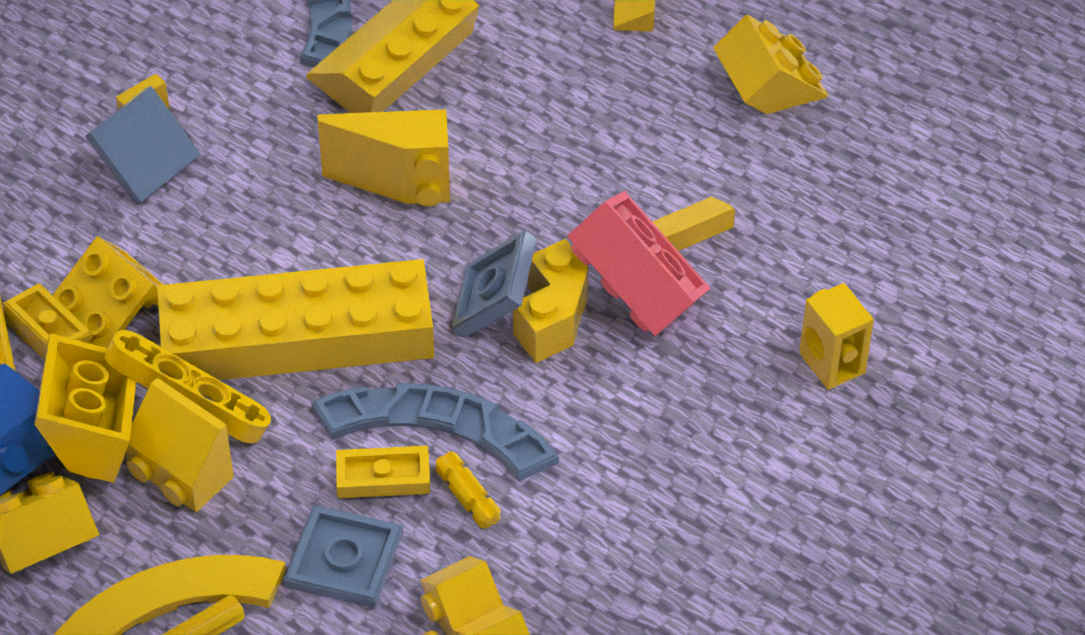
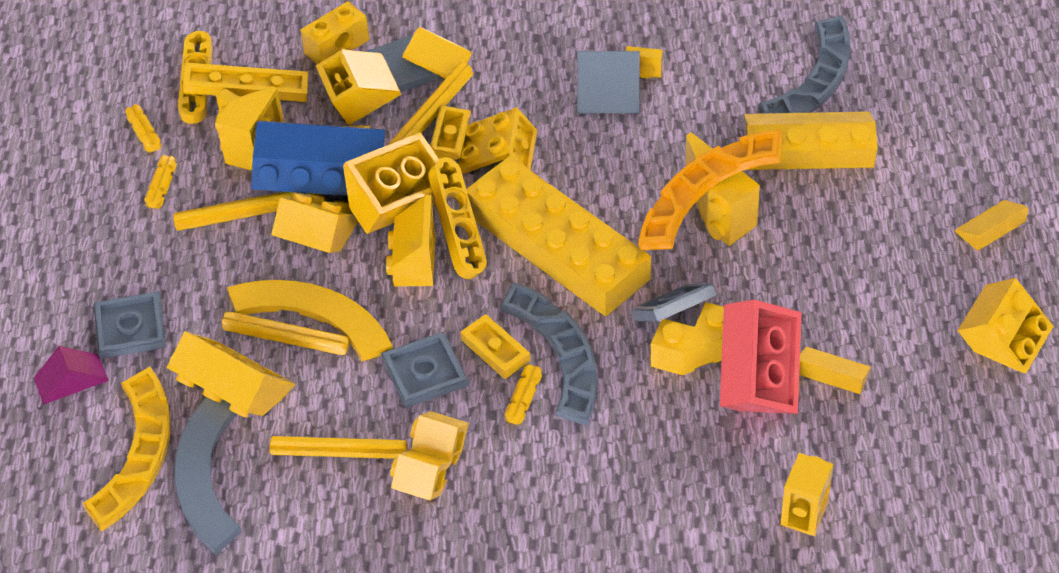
camera: 55 degrees right, 0 degrees up
(388, 147) = (698, 177): none -> light orange tile

